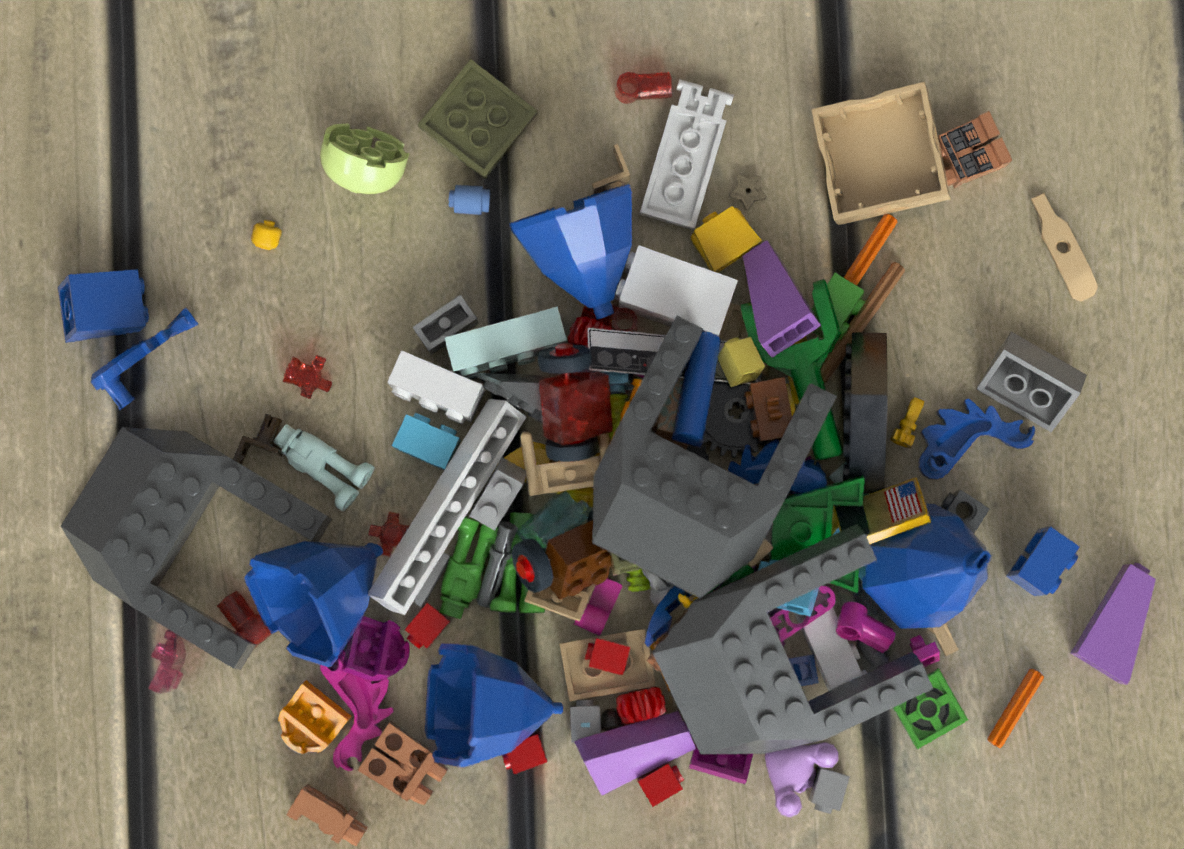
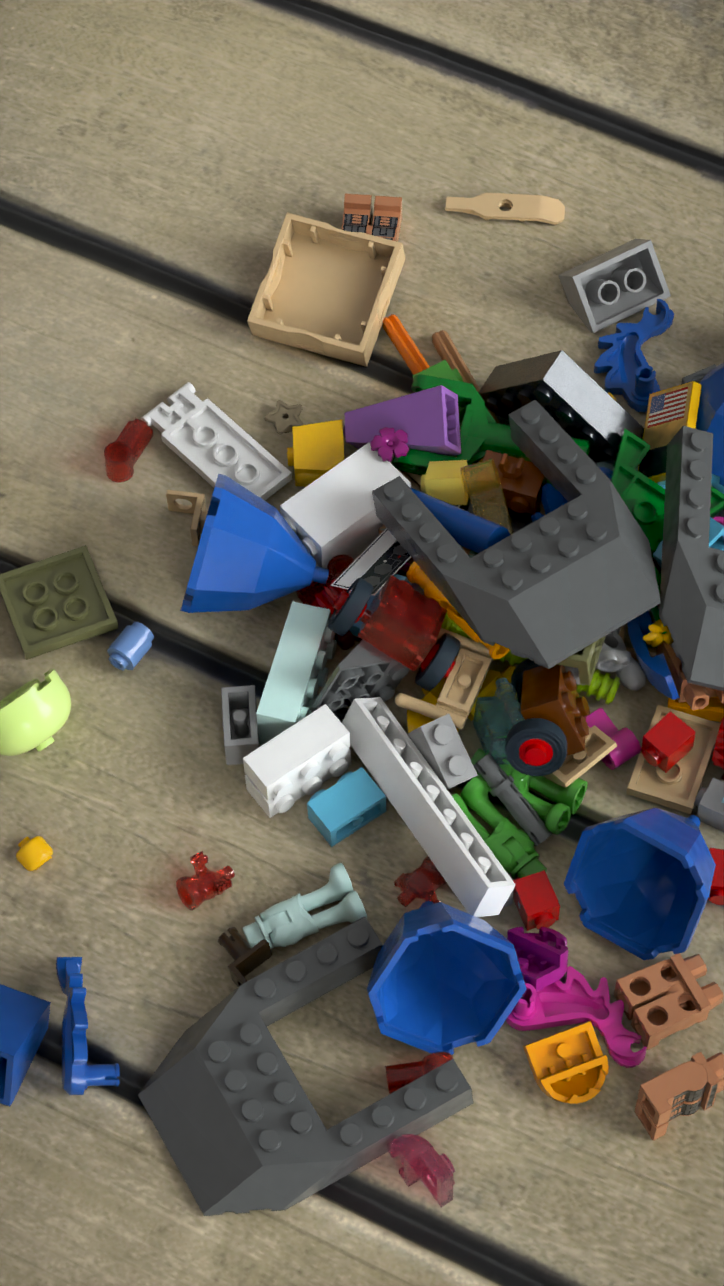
camera: 55 degrees left, 25 degrees down
(733, 408) = (486, 492): none -> clear yellow plate
(744, 298) = (389, 443): none -> magenta plant

